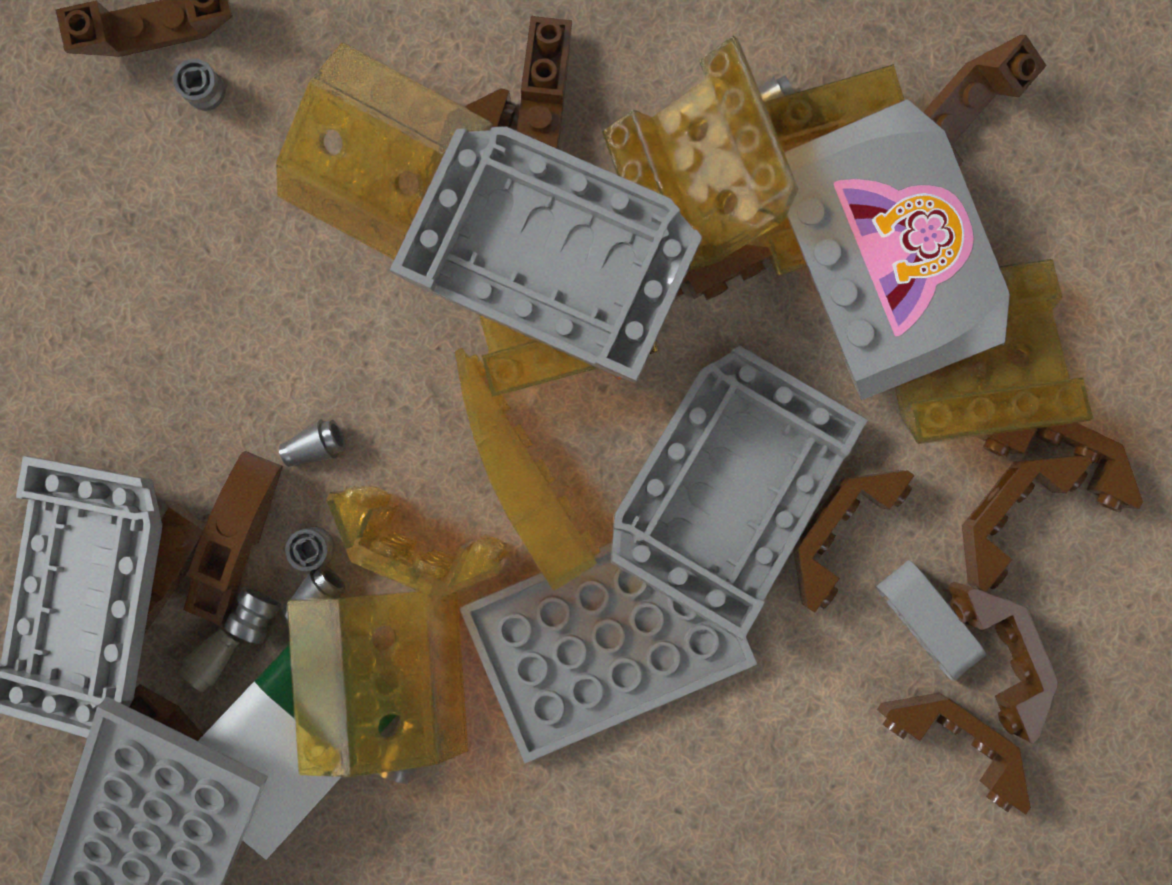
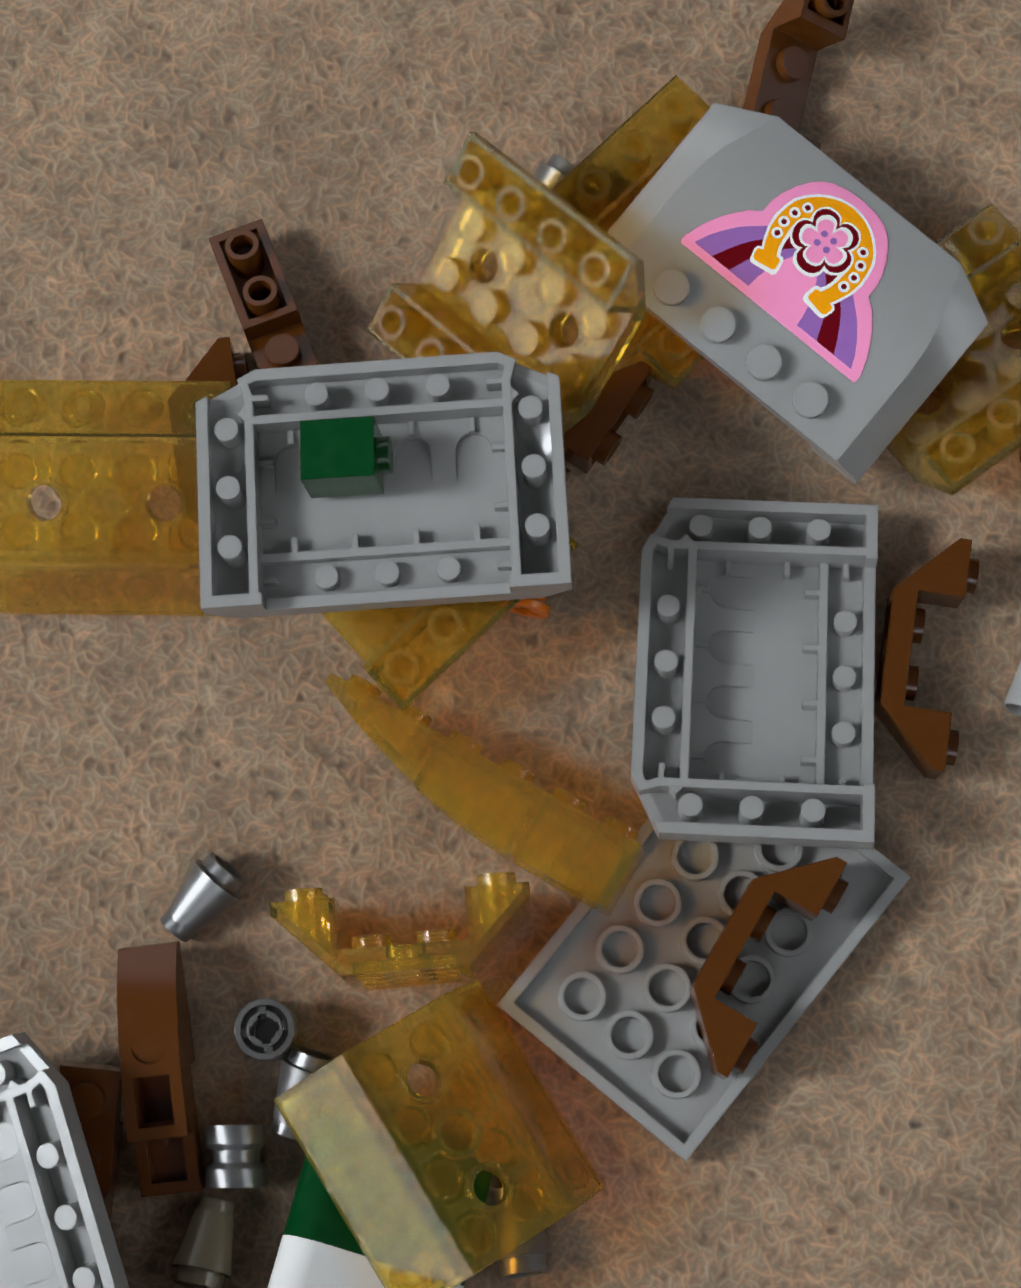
camera: 30 degrees left, 10 degrees down
(532, 217) = (344, 457): none -> dark green brick
(590, 704) = (801, 889): none -> reddish brown slope

